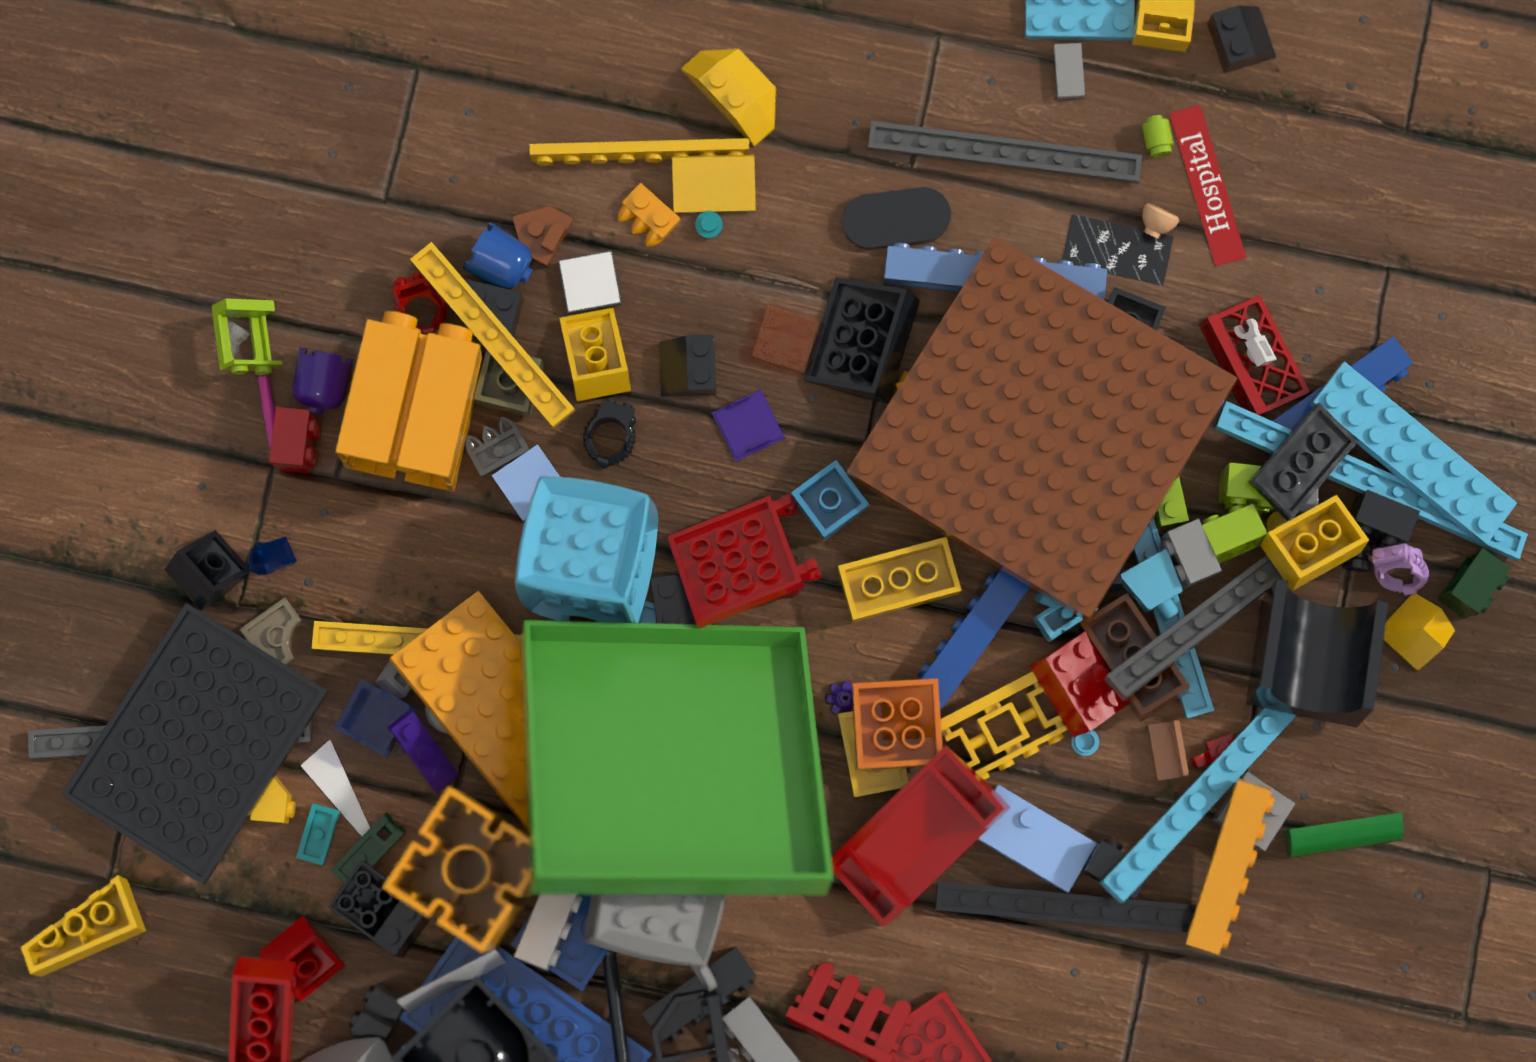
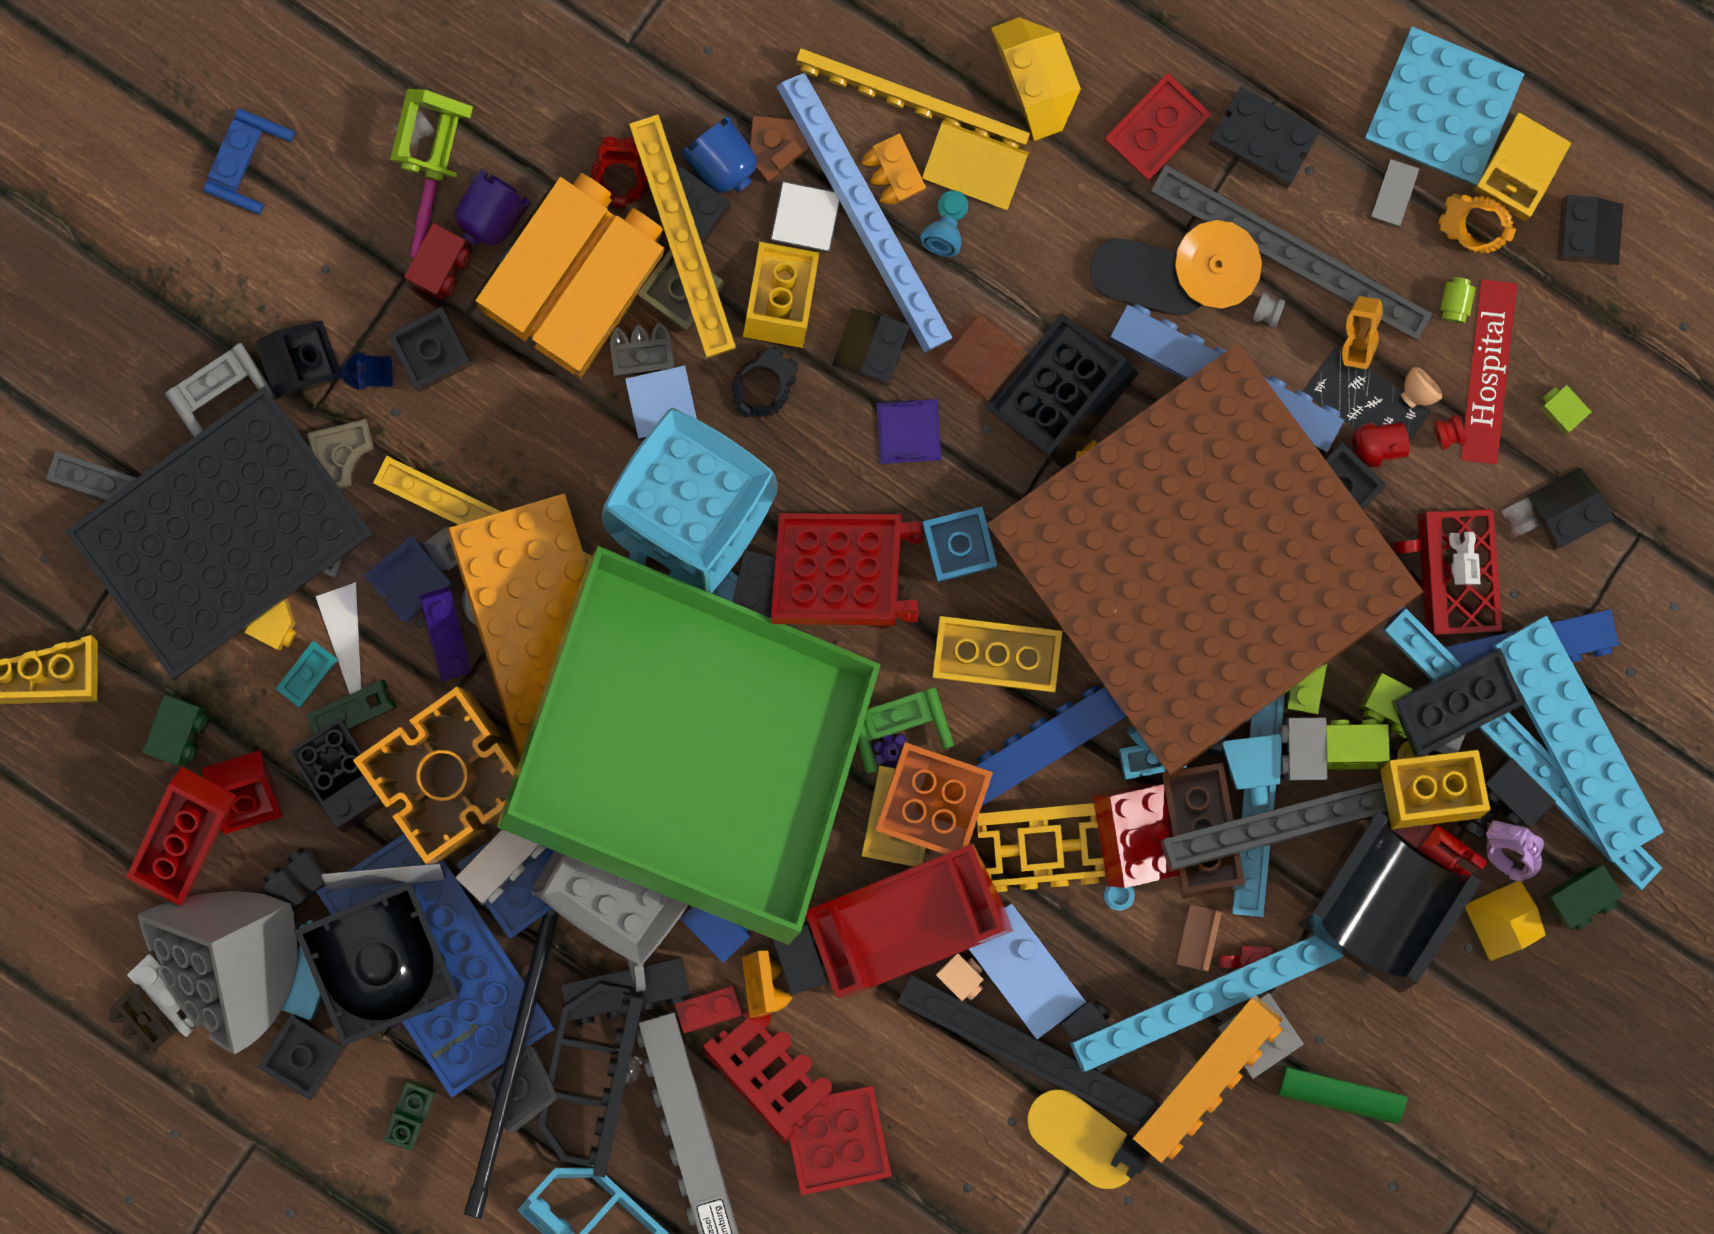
camera: 25 degrees right, 5 degrees up
(88, 421) = (236, 155): none -> blue plate
(141, 618) = (212, 382): none -> light grey plate
(223, 928) = (176, 731): none -> dark green brick
(316, 516) = (430, 349): none -> black brick
(637, 259) = (864, 212): none -> light blue plate
(710, 253) = (942, 237): none -> dark azure brick
(757, 910) = (716, 933): none -> blue brick
(776, 982) = (708, 1009): none -> red plate
(808, 934) = (761, 994): none -> light orange tile
(838, 665) = (900, 716): none -> bright green plate
(840, 908) = (801, 962): none -> black brick
(852, 93) = (1157, 127): none -> red plate
(943, 67) = (1264, 137): none -> black piece
(949, 183) = (1218, 264): none -> light orange piece
(981, 865) = (961, 977): none -> light nougat brick
(1006, 205) = (1268, 310): none -> light grey wheel
(1091, 190) = (1362, 332): none -> light orange brick
(1127, 70) = (1454, 221): none -> light orange piece
(1141, 962) = (1078, 1137): none -> yellow tile
(1145, 275) = (1380, 443): none -> red piece
(1189, 958) = (1131, 1155): none -> black tile
(1197, 246) = (1449, 432): none -> red wheel
(1206, 350) = (1407, 546): none -> red tile
(1283, 189) = (1564, 409): none -> lime brick
(1286, 292) = (1521, 517): none -> clear wheel
(1323, 268) = (1570, 508): none -> black slope
(1337, 591) = (1441, 847): none -> red plate

